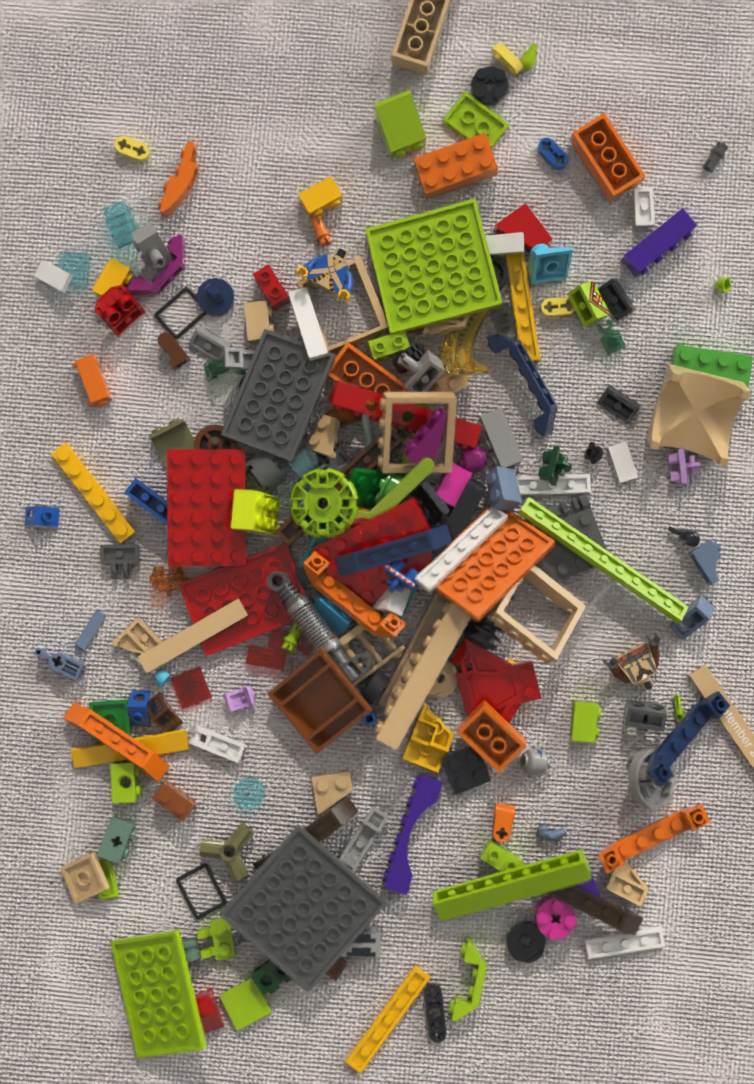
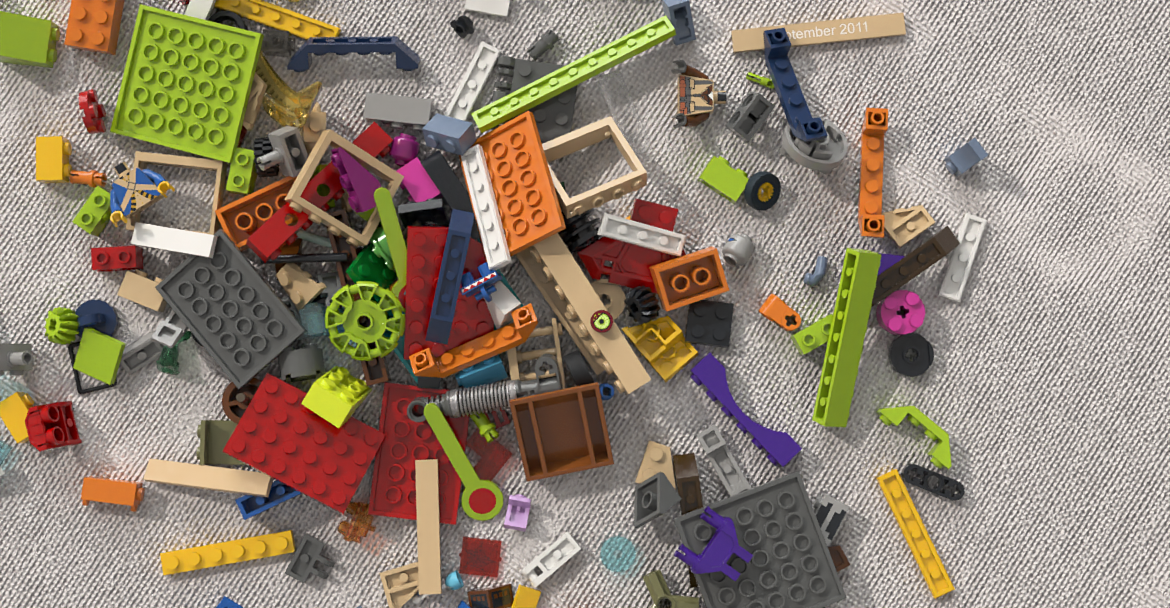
camera: 65 degrees left, 0 degrees up
(140, 286) = (41, 391): magenta slope -> none
(141, 448) = (208, 477): none -> tan tile
(170, 345) = (119, 393): reddish brown leg -> none
(190, 314) = (99, 355): none -> lime tile
(198, 274) = (61, 325): none -> lime gear
(235, 663) = (480, 498): none -> lime piece
(290, 872) = (718, 549): none -> dark purple connector
(298, 252) = (95, 212): none -> lime brick
(305, 799) = (653, 499): none -> dark grey slope
(350, 435) = (309, 258): none -> black bar
(373, 208) = (93, 111): none -> red plate
(420, 687) = (601, 321): none -> tile
(451, 710) = (642, 304): none -> black gear
(505, 680) = (641, 234): none -> white tile
(557, 466) = (456, 68): dark green hips -> none
(595, 763) = (771, 190): none -> black bush
(613, 523) = (541, 46): none -> dark grey pin
(705, 904) = (965, 157): none -> sand blue arch

